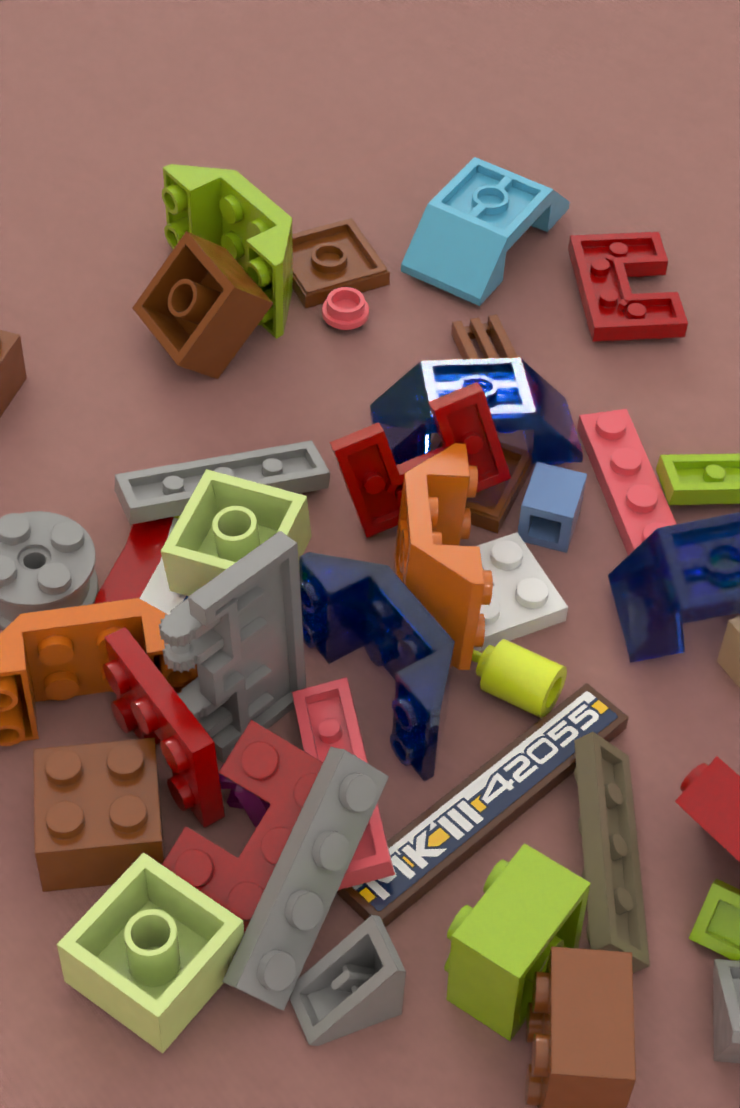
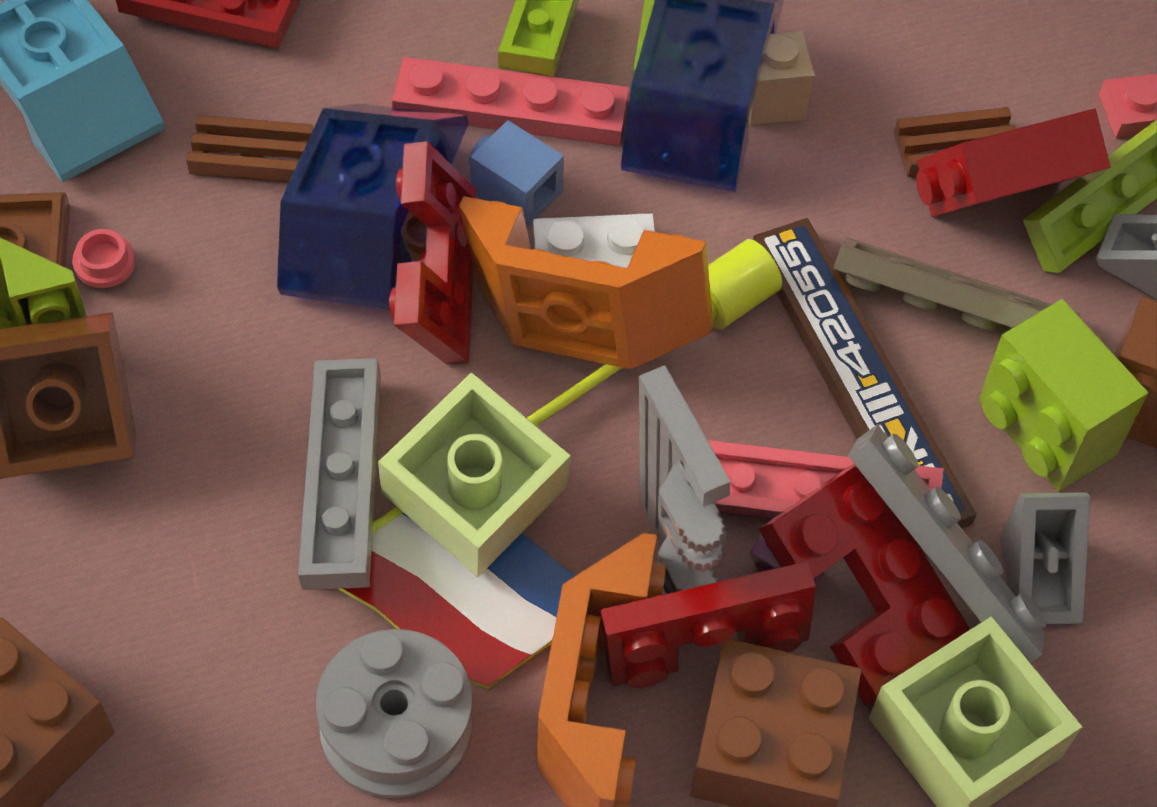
camera: 70 degrees left, 10 degrees up
(369, 606) = (707, 357): clear blue slope -> none

